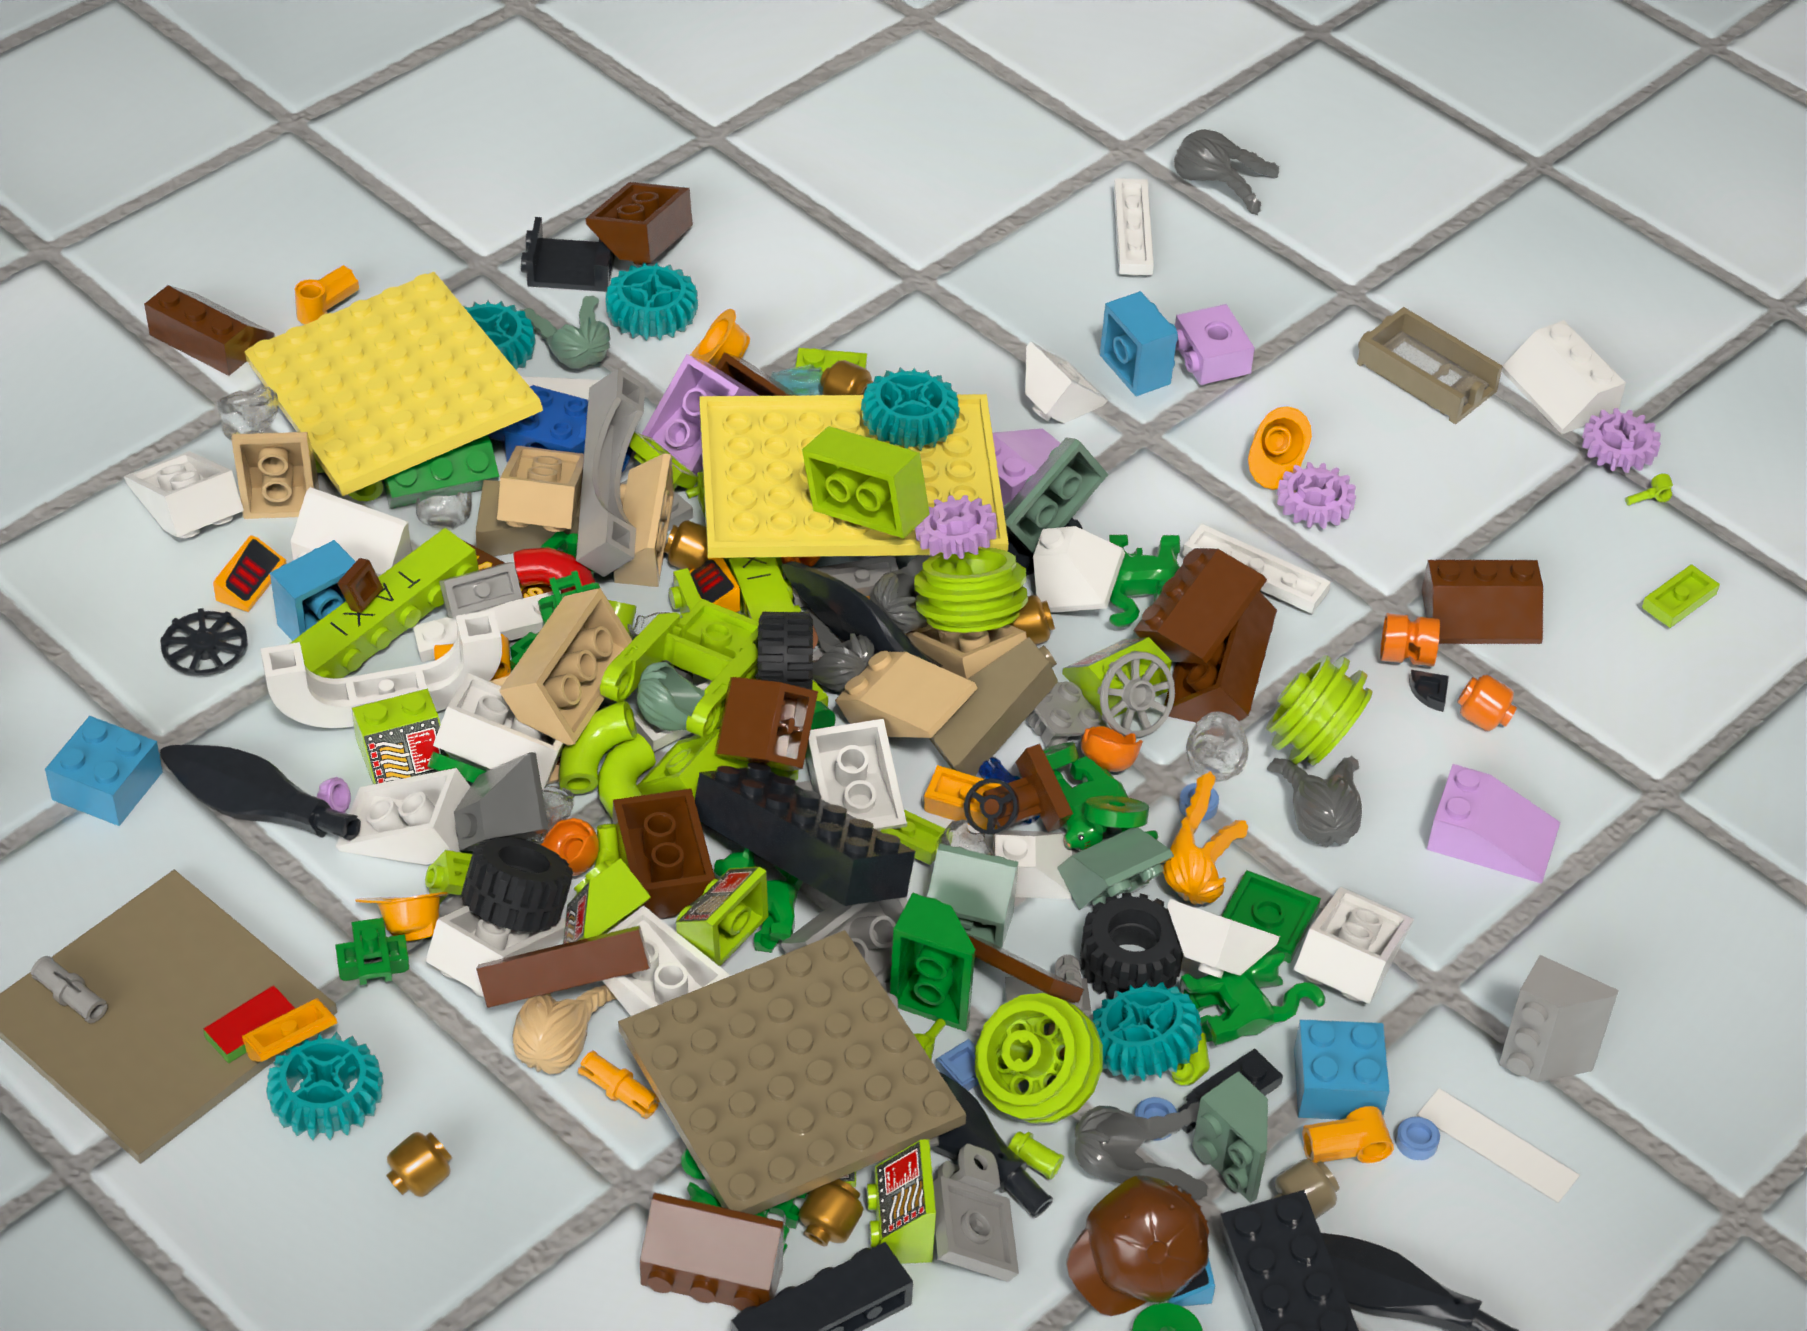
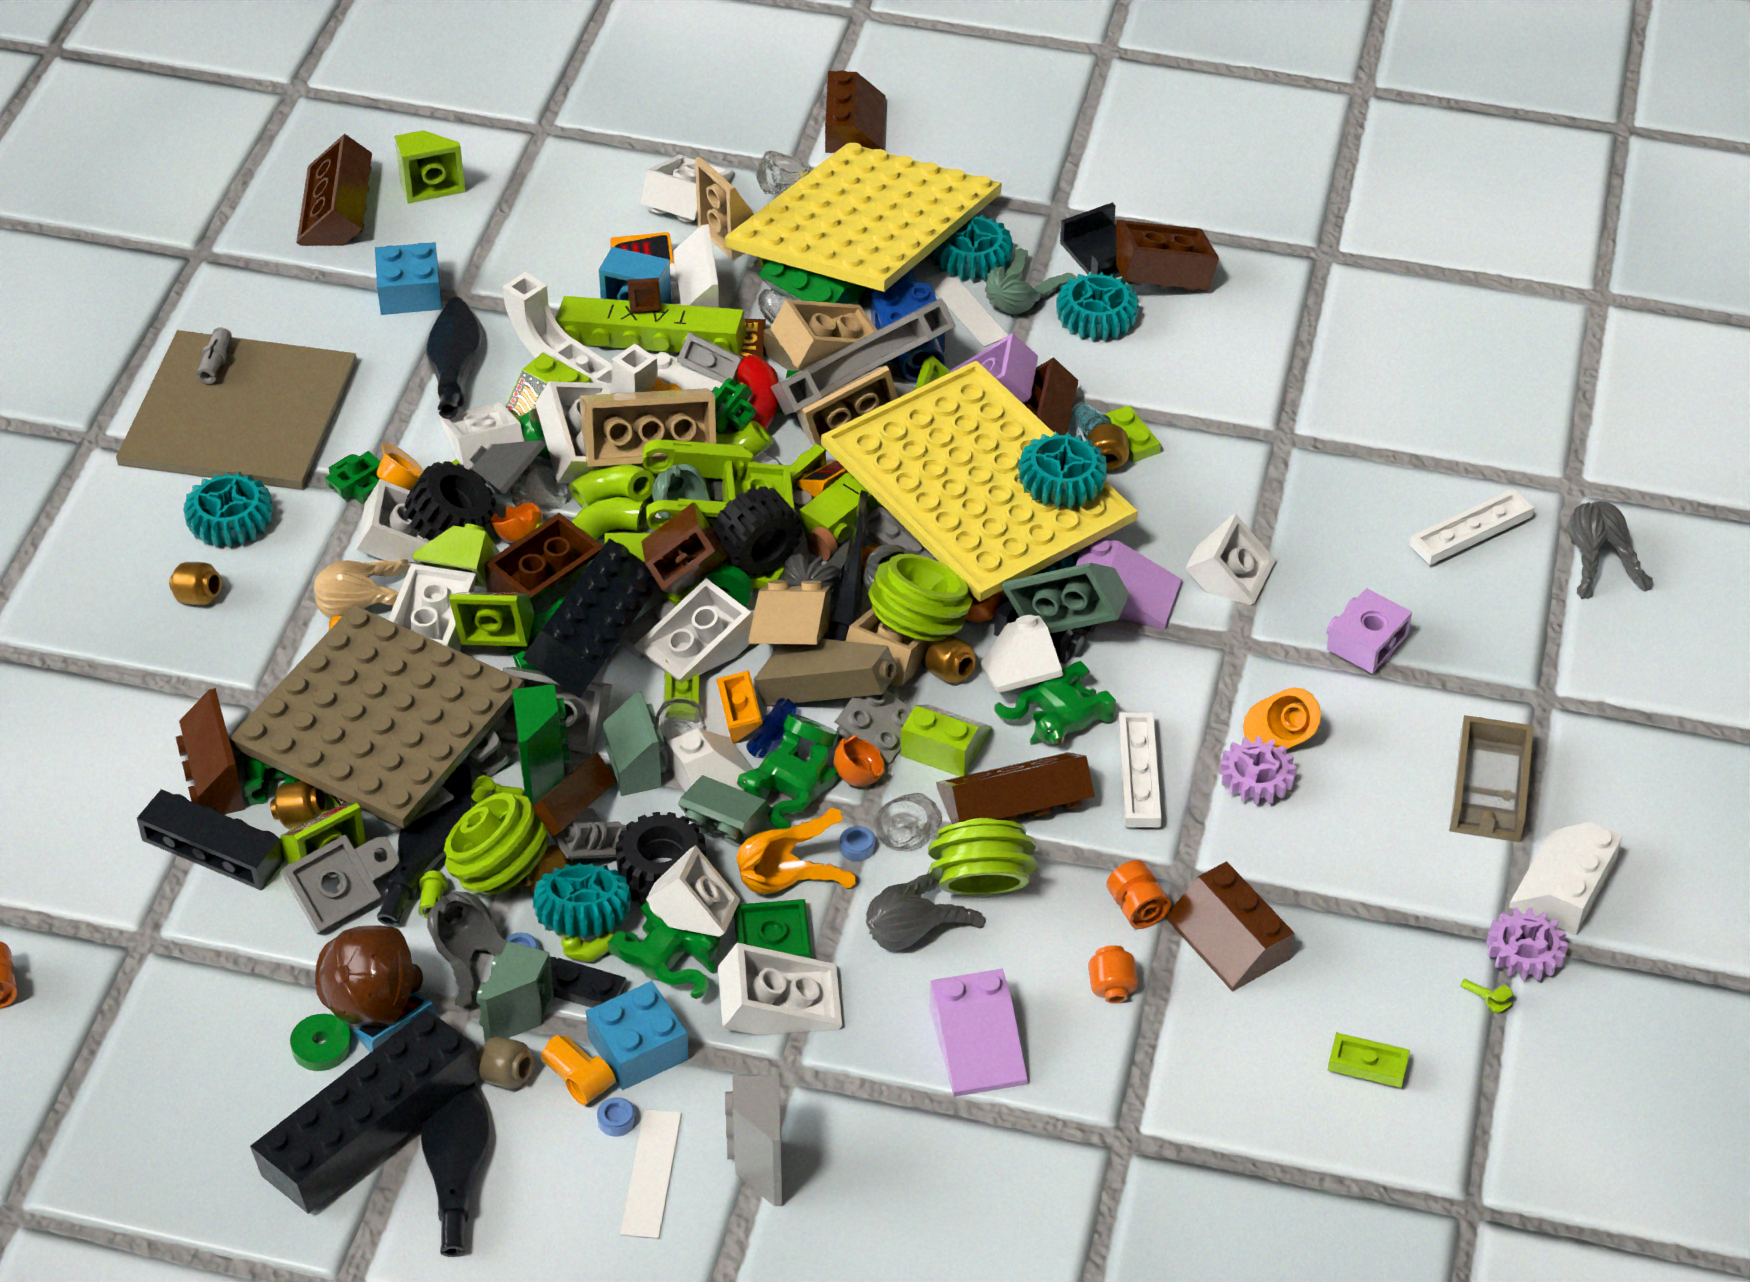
camera: 60 degrees right, 0 degrees up
(204, 642) = (564, 266): black wheel -> none
(228, 1030) = (250, 449): red tile -> none
(288, 1030) = (248, 464): light orange slope -> none
(317, 296) = (928, 147): light orange piece -> none
(335, 793) = (477, 392): lavender piece -> none
(563, 966) = (384, 558): reddish brown tile -> none
(722, 337) = (1088, 364): light orange piece -> none
(866, 481) = (935, 471): lime brick -> none
(957, 527) = (952, 548): lavender gear -> none
(1022, 799) = (744, 726): reddish brown piece -> none
(1116, 811) = (773, 784): green piece -> none
(1136, 693) = (917, 748): light grey wheel -> none
(1138, 343) = (1315, 582): dark azure brick -> none
(1200, 605) = (1035, 737): reddish brown slope -> none
(1429, 688) = (1107, 934): black tile -> none

